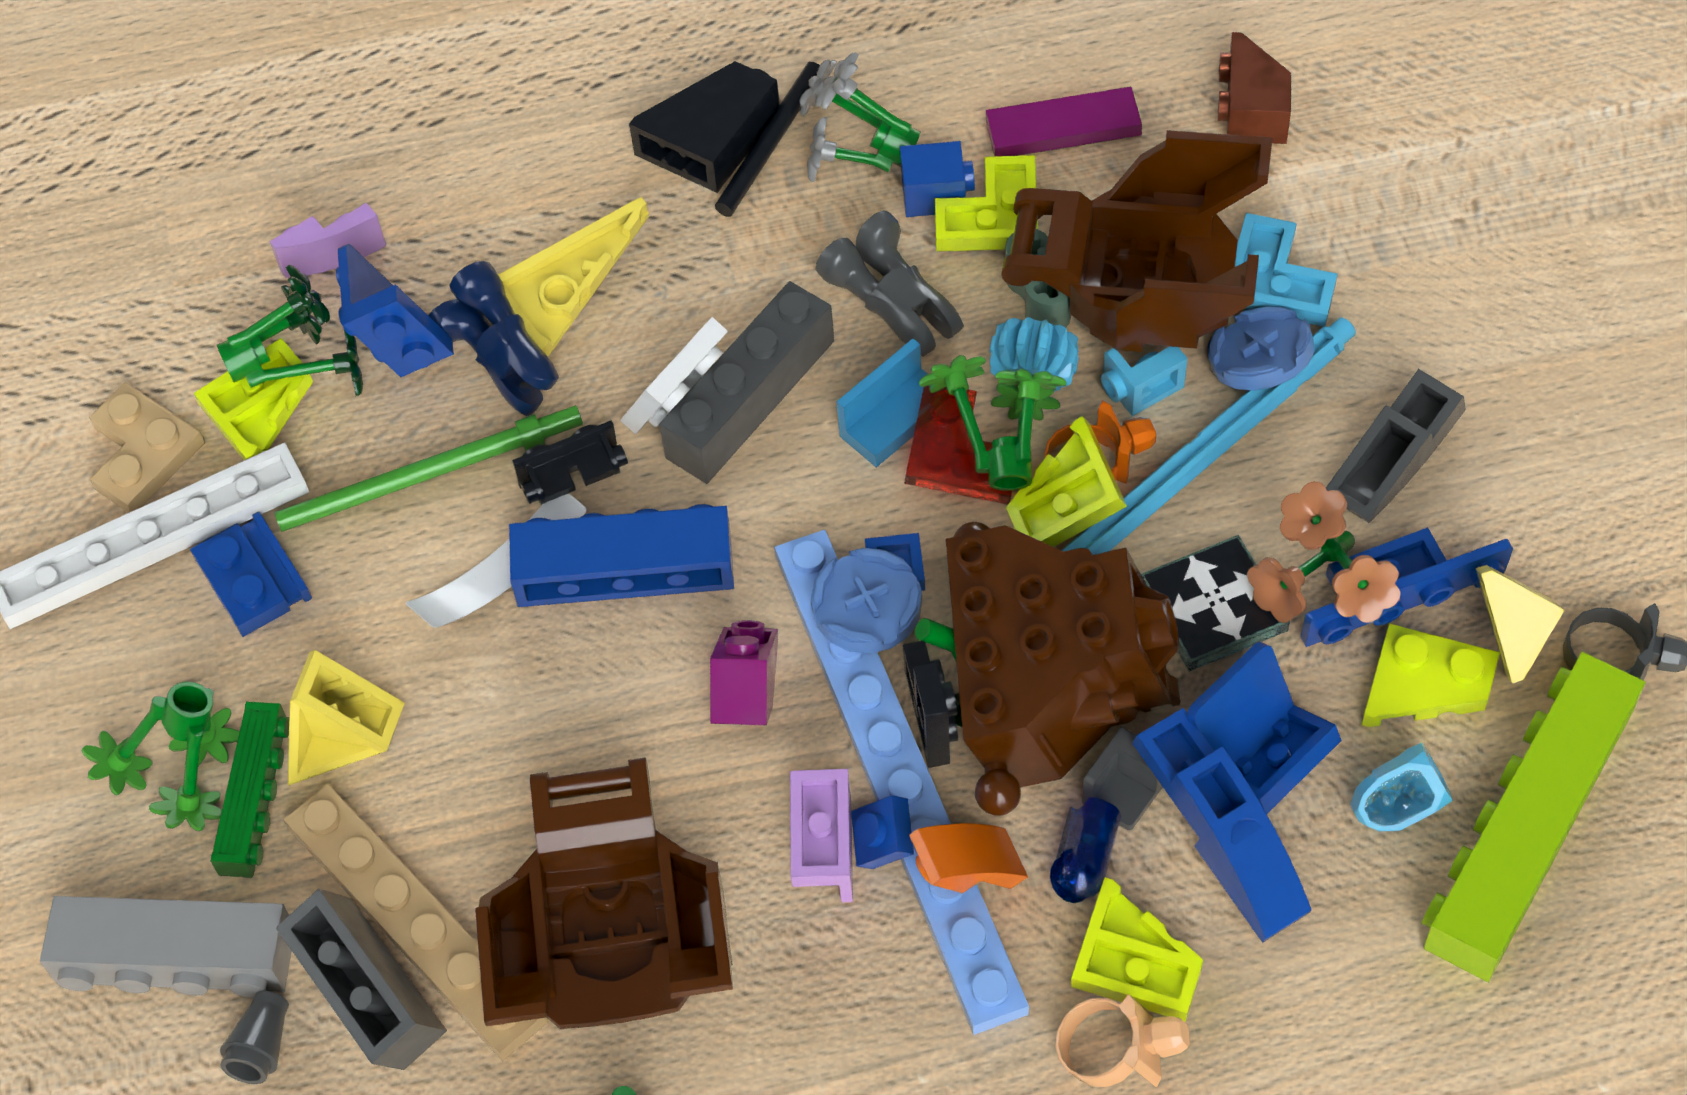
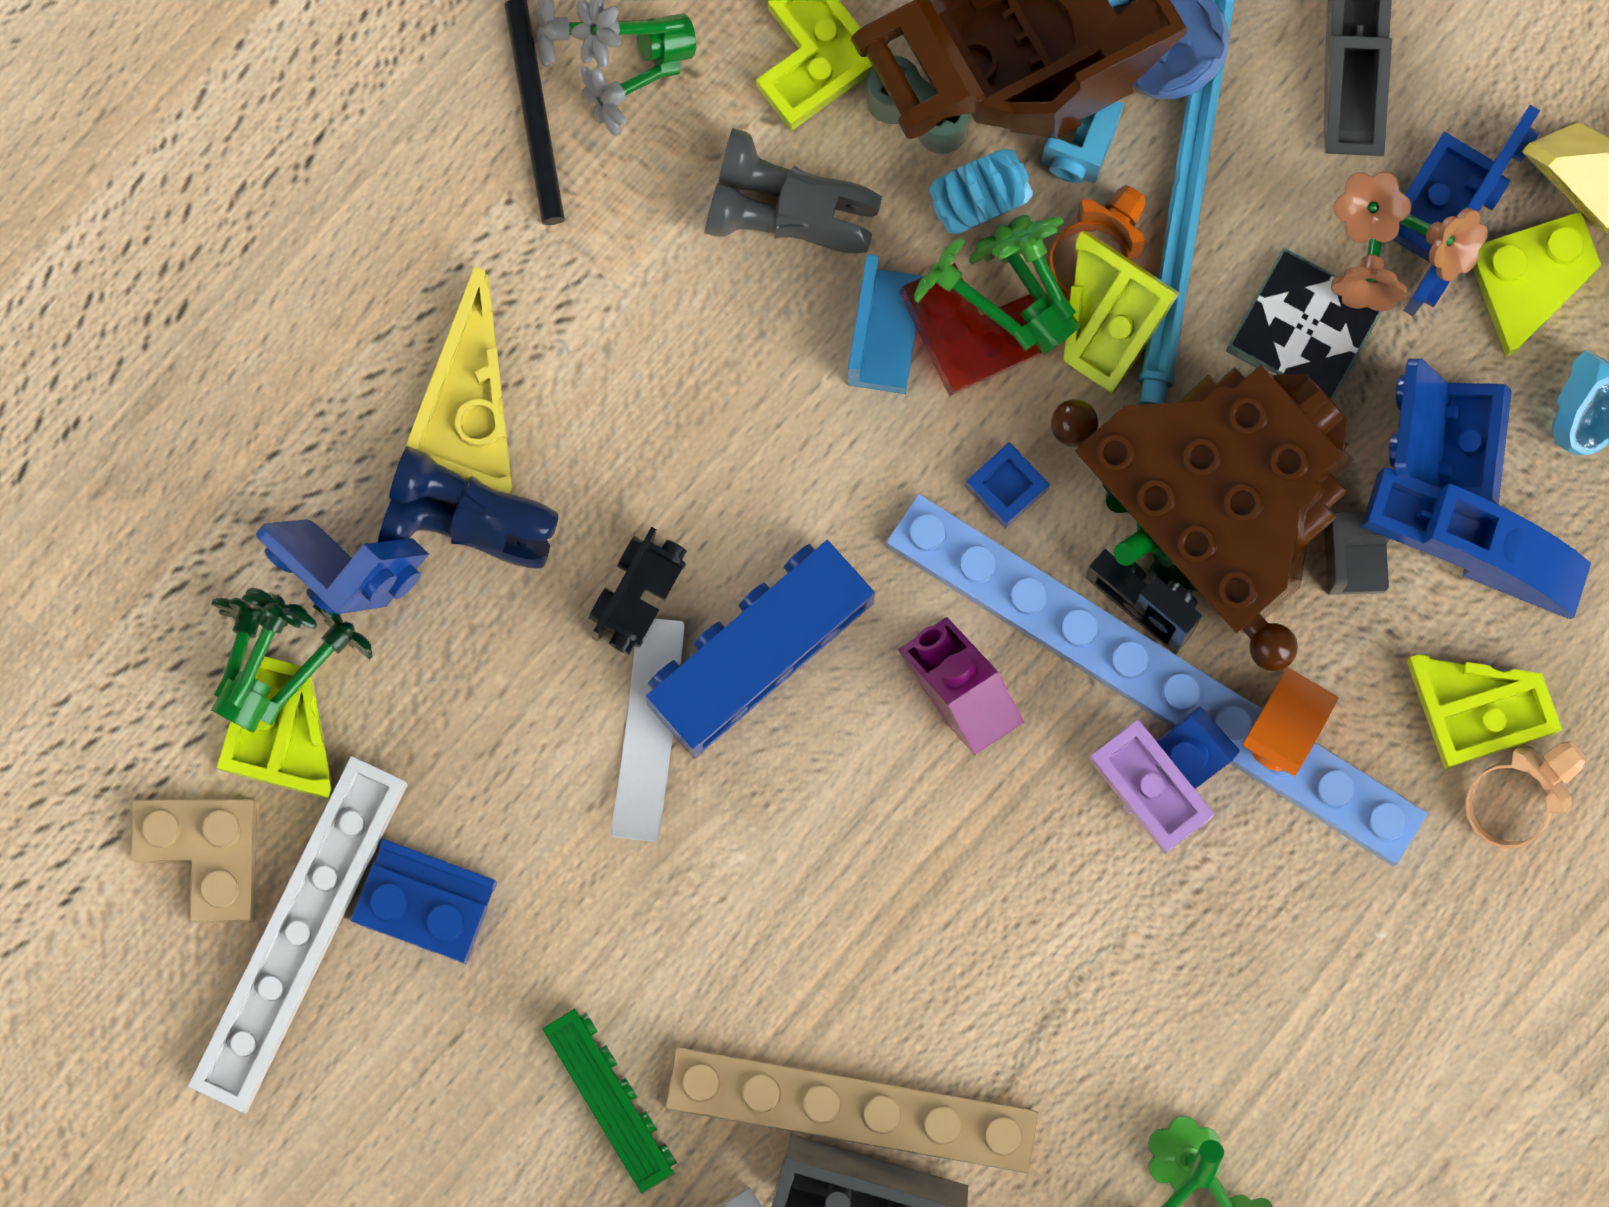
camera: 40 degrees left, 20 degrees up
(187, 720) = (528, 1090): plant -> none
(316, 248) = (195, 535): lavender slope -> none
(336, 719) = (639, 983): light yellow slope -> none
(527, 433) = (564, 584): bright green bar -> none
(602, 914) = (1045, 998): reddish brown piece -> none
(676, 378) = (673, 441): white plate -> none
(708, 125) = (471, 141): black slope -> none
(747, 382) = (735, 394): dark grey brick -> none
(866, 600) = (1019, 542): medium blue tile -> none
(933, 173) = (736, 55): blue brick -> none
(1085, 850) = (1373, 644): clear blue piece -> none

